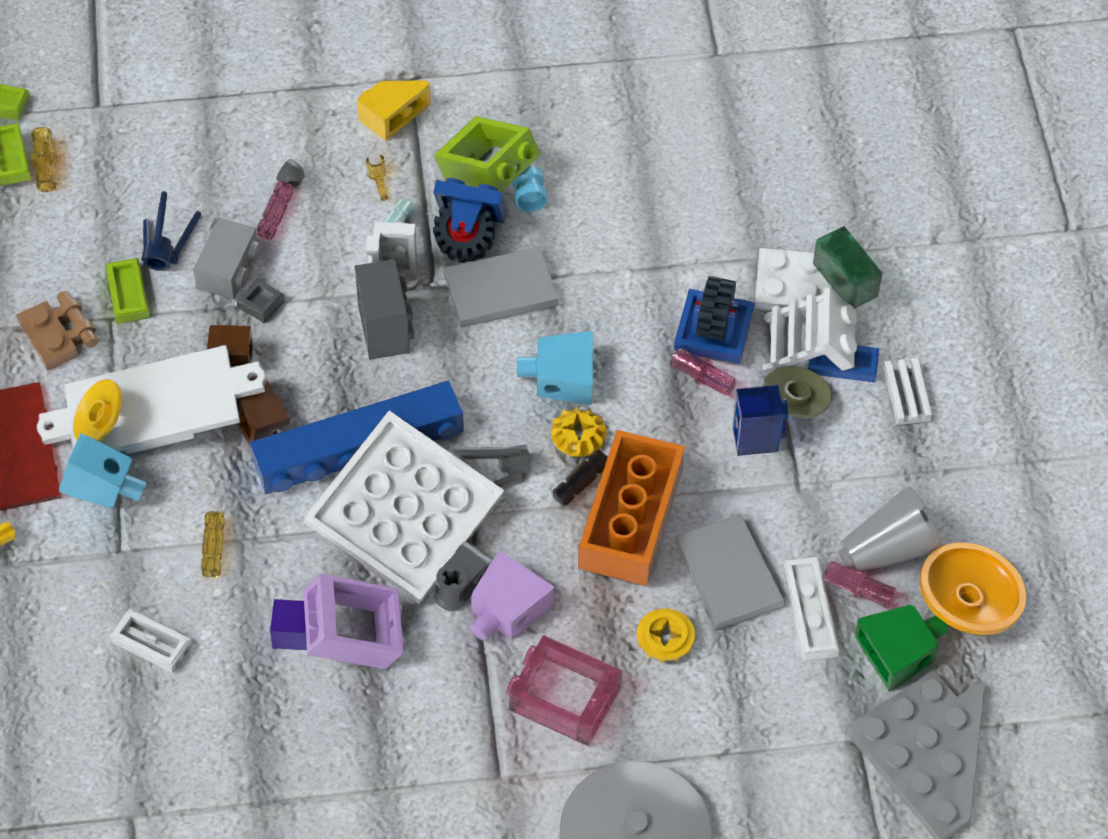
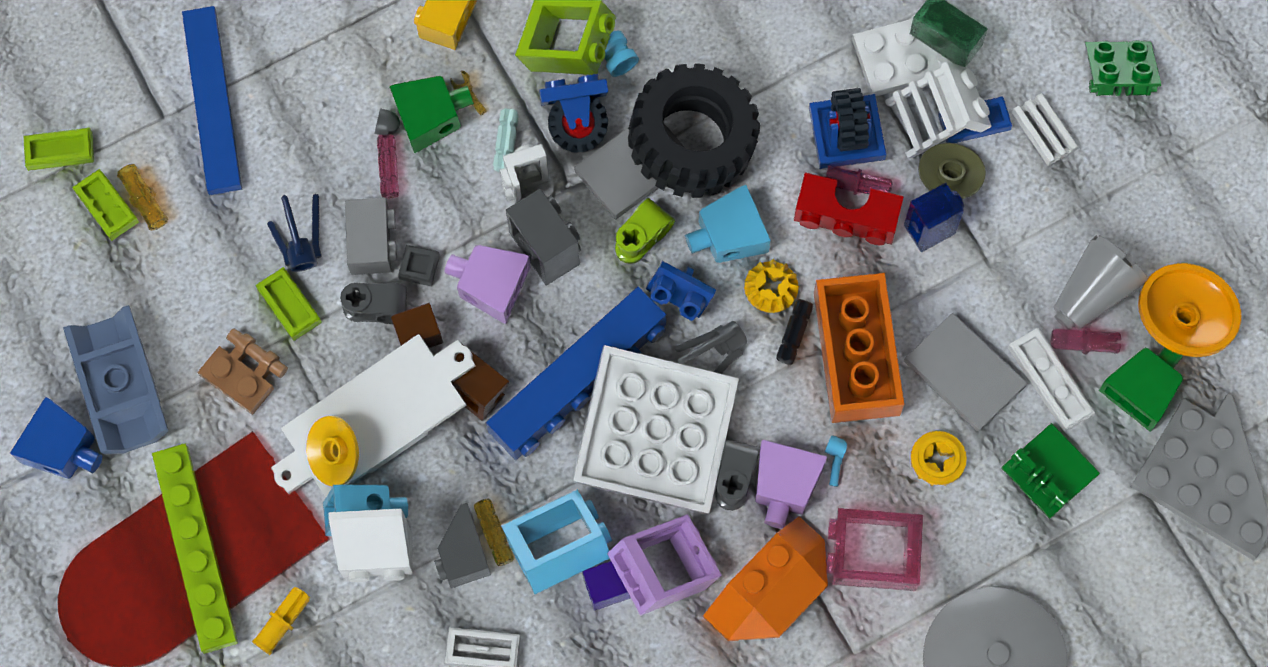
camera: 20 degrees left, 15 degrees up
(93, 500) = (372, 544): none -> white slope
(146, 106) = (211, 100): none -> blue tile
(174, 546) = (461, 551): none -> dark grey slope
(202, 312) = (377, 301): none -> dark grey piece
(264, 566) = (566, 560): none -> medium azure window
(319, 332) = (490, 279): none -> lavender torso
(334, 175) = (429, 109): none -> green torso
(448, 683) = (772, 586): none -> orange wedge
(481, 338) = (646, 228): none -> lime piece
(488, 399) = (680, 289): none -> blue hips
(572, 235) = (701, 92): none -> black tyre
(573, 594) = (836, 448): none -> medium azure hand
(701, 407) = (873, 221): none -> red arch
(770, 686) = (1050, 470): none -> green hinge
(1010, 360) = (1122, 65): none -> green hinge

